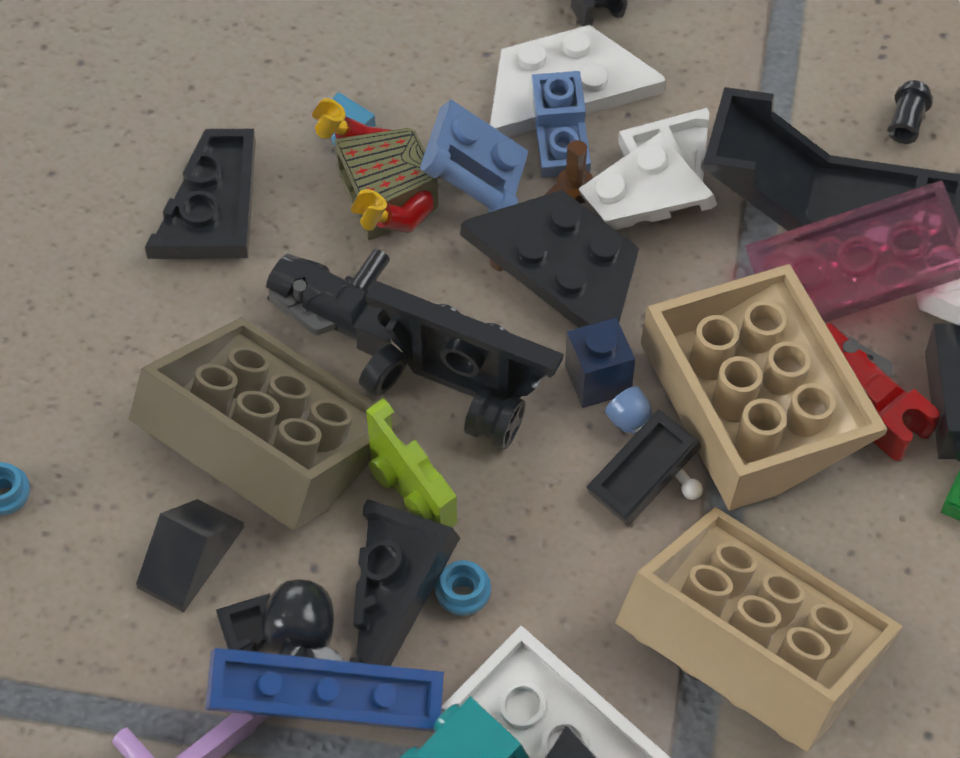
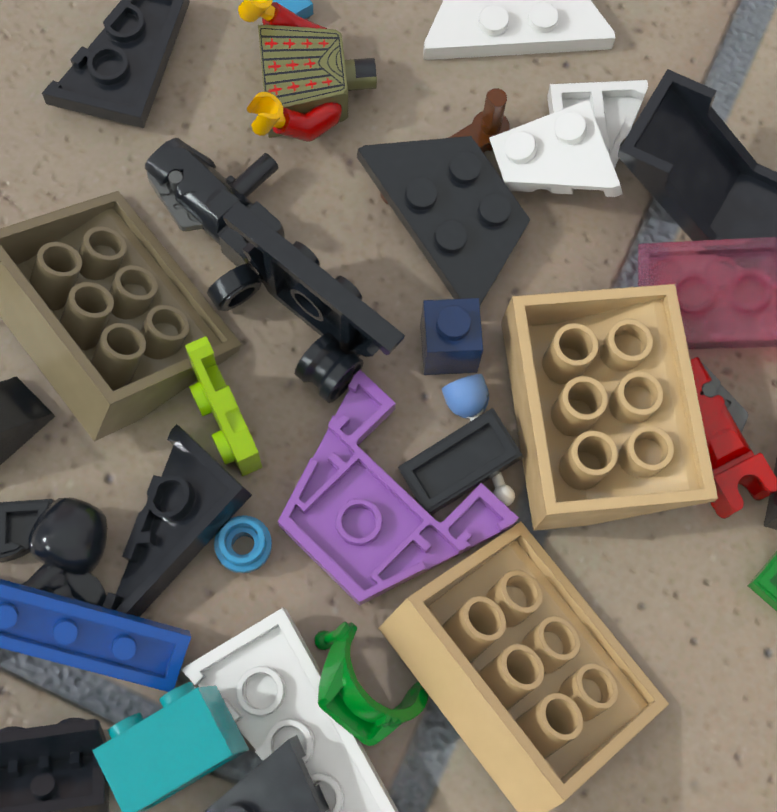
camera: 10 degrees right, 15 degrees up
(474, 157) = (401, 71): medium blue plate -> none
(558, 118) = (494, 55): medium blue slope -> none
(571, 540) = (363, 522): none -> medium lavender wing
(610, 680) = (348, 702): none -> green helmet

